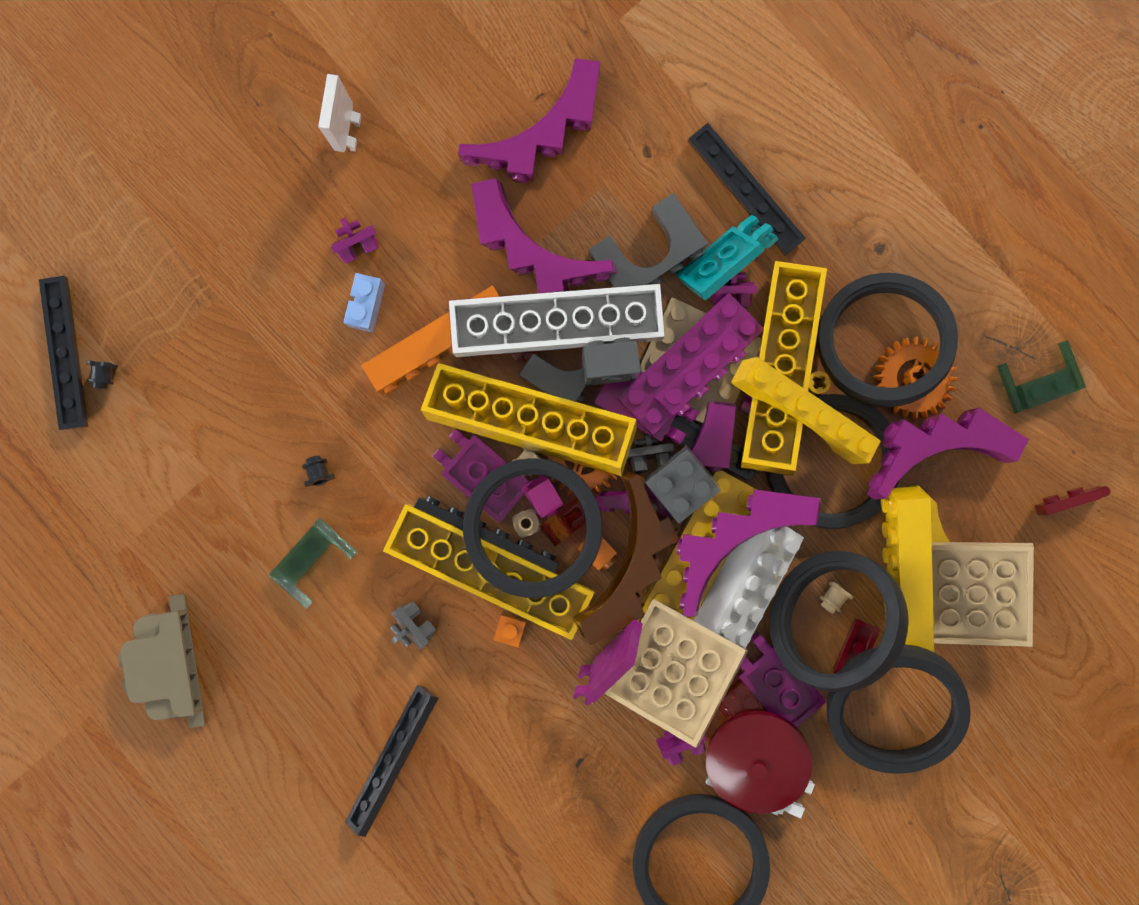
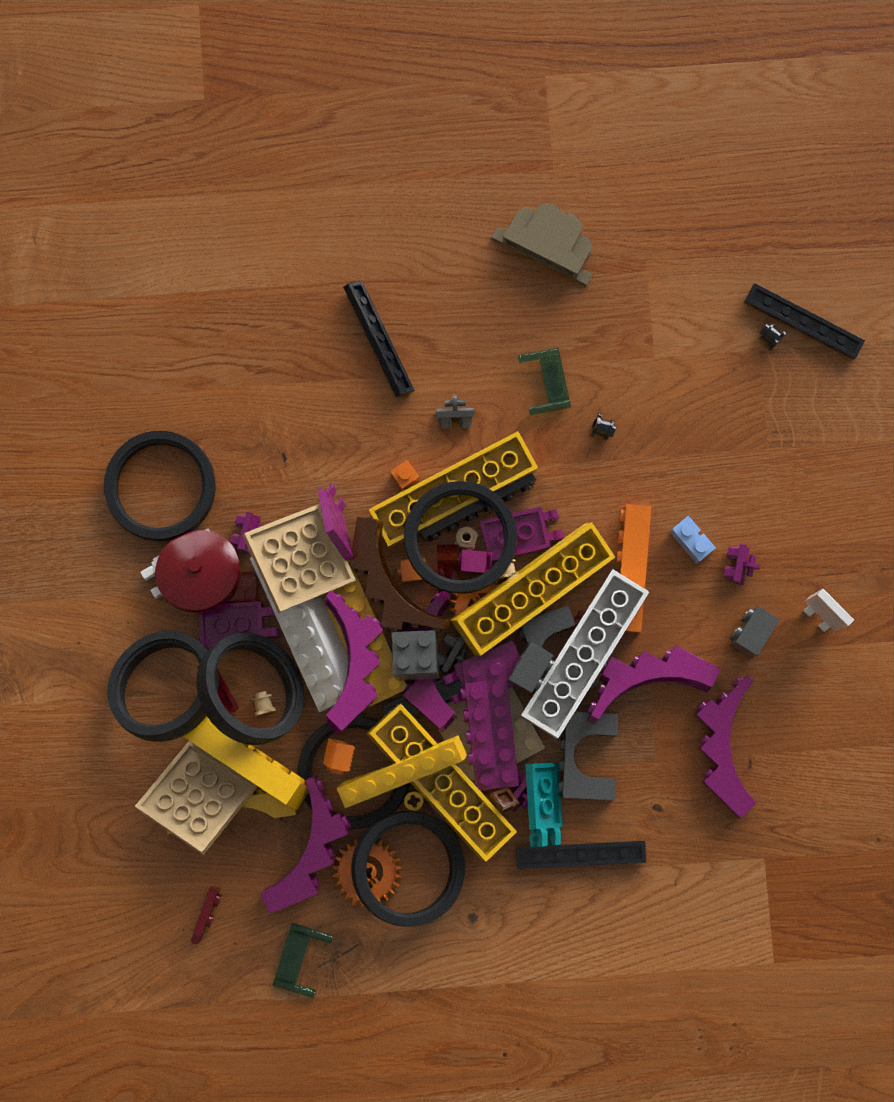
camera: 125 degrees right, 5 degrees down
(411, 177) = (754, 632): none -> dark grey brick
(754, 295) = (504, 800): none -> reddish brown tile
(836, 484) = (338, 756): none -> orange brick

